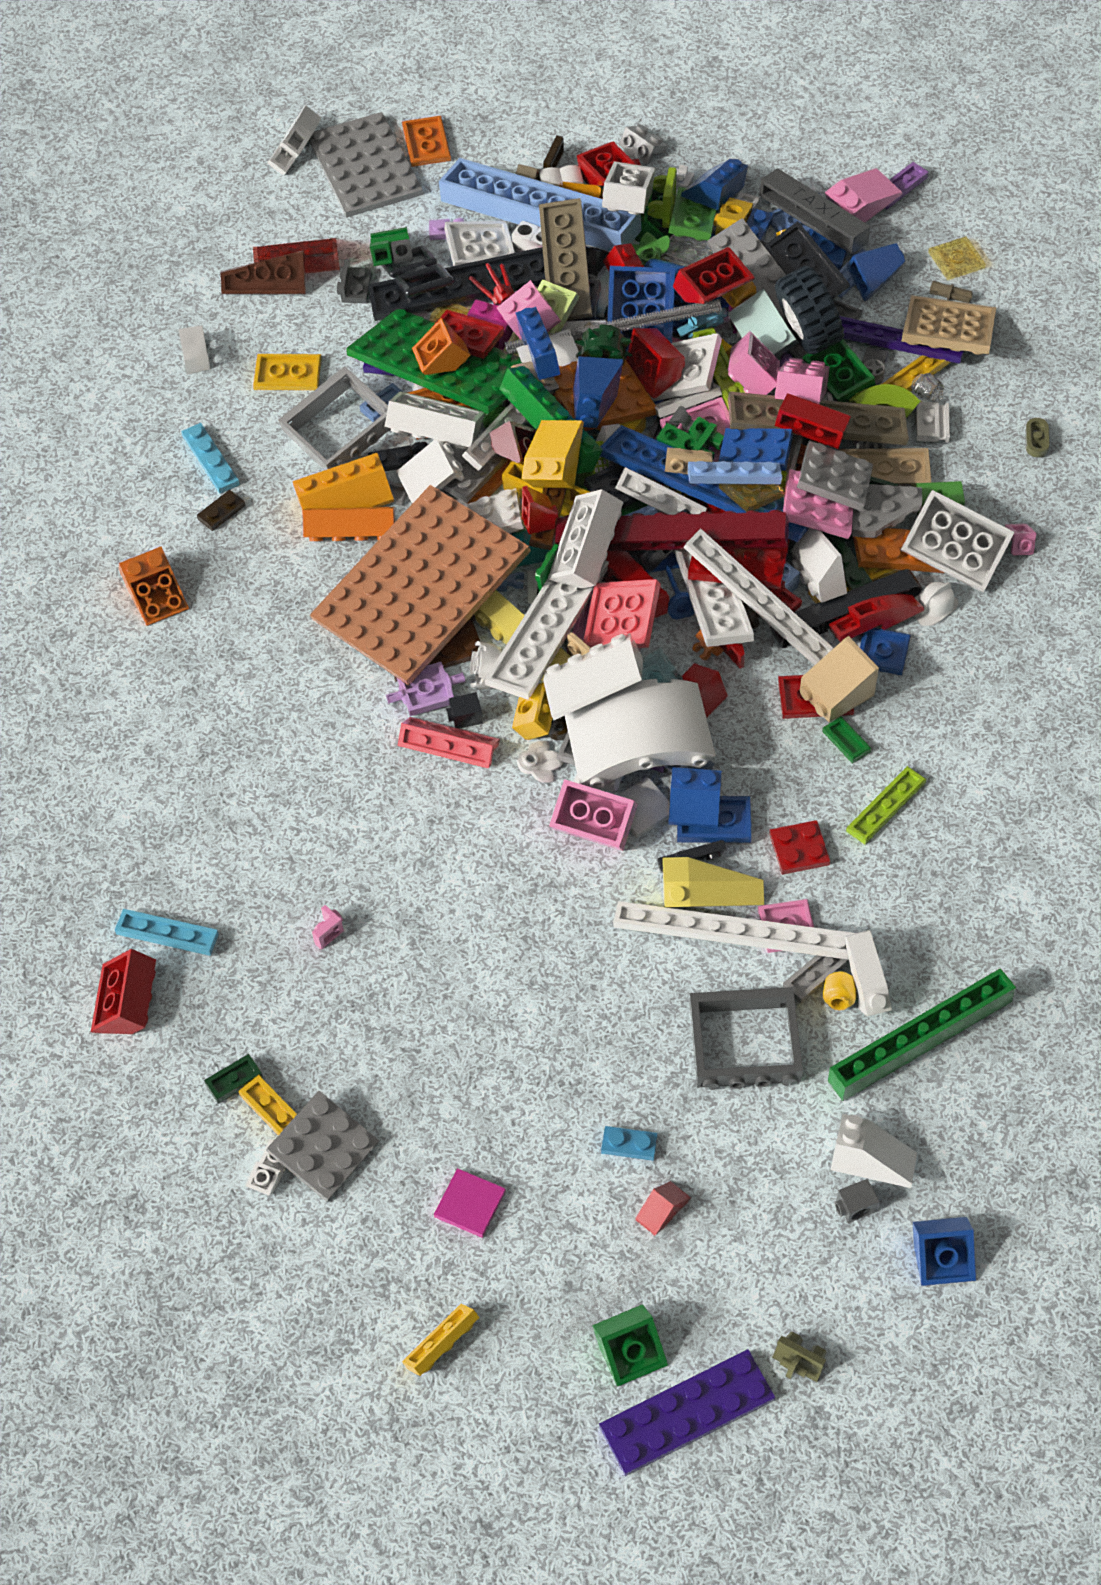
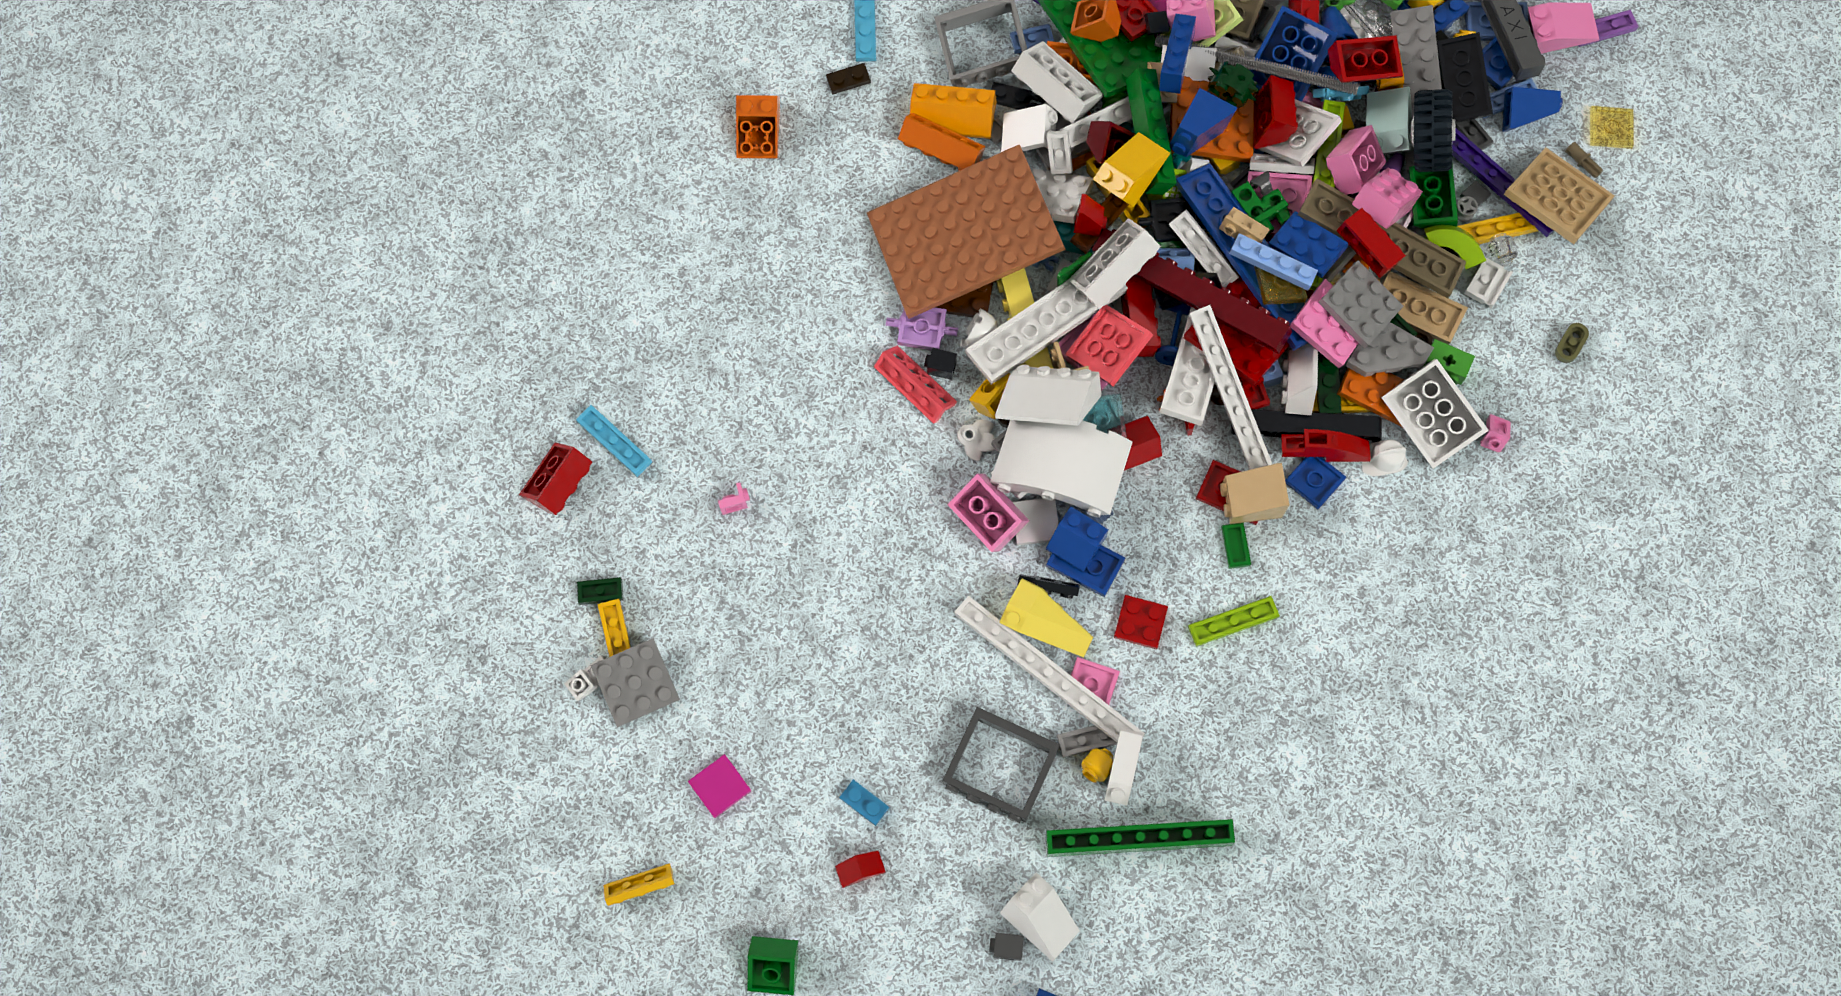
camera: 30 degrees right, 15 degrees up
(473, 475) = (1059, 152): none -> white plate
(500, 331) = (1156, 23): none -> black tile

